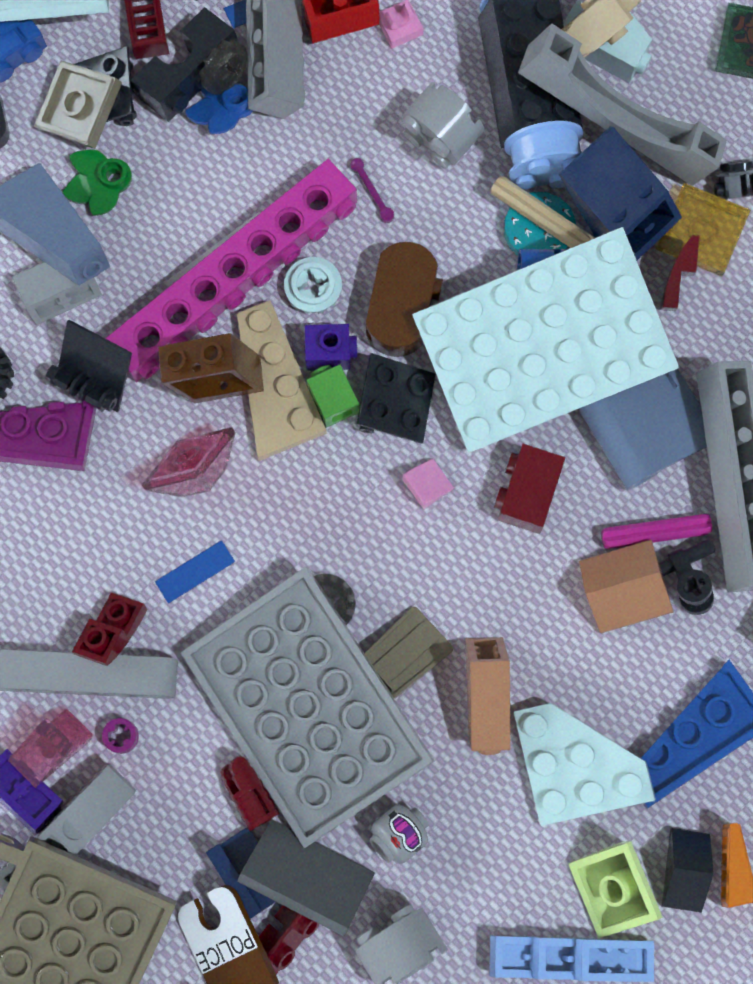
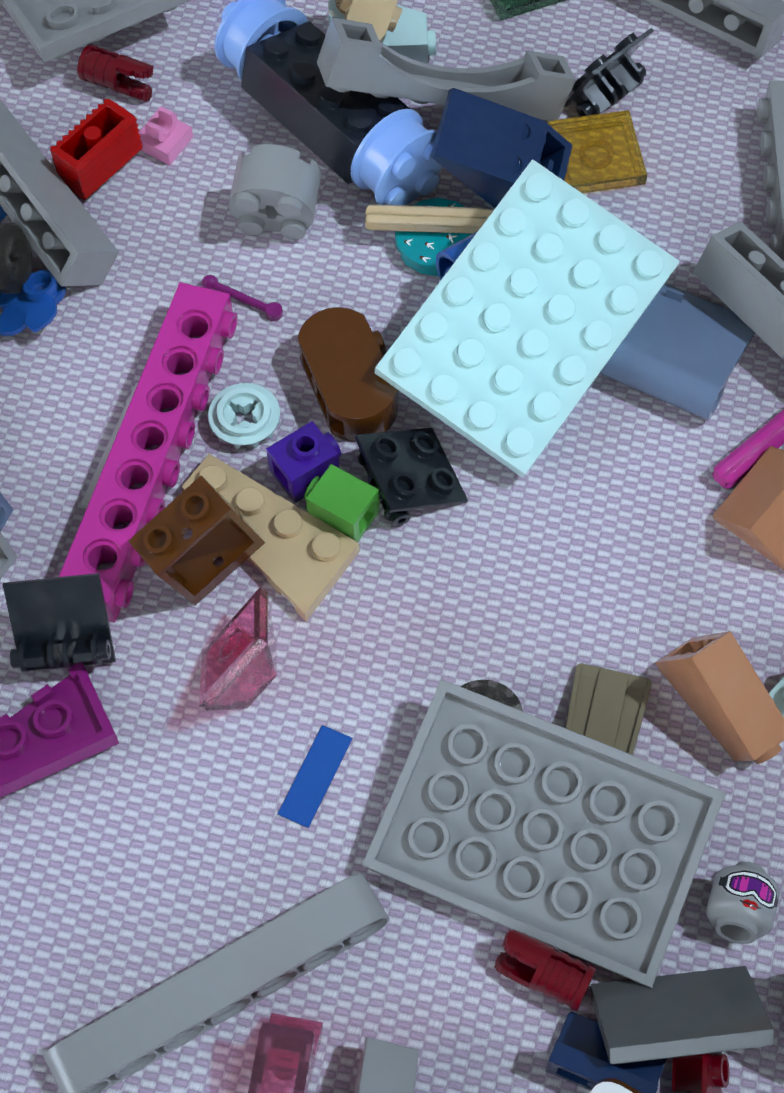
camera: 30 degrees left, 15 degrees down
(109, 634) = (266, 887): dark red slope -> none
(112, 727) = (370, 1005): magenta bush -> none
(427, 483) = (501, 534): bright pink slope -> none
(530, 488) = (612, 473): dark red brick -> none
(684, 265) = (607, 183): dark red slope -> none

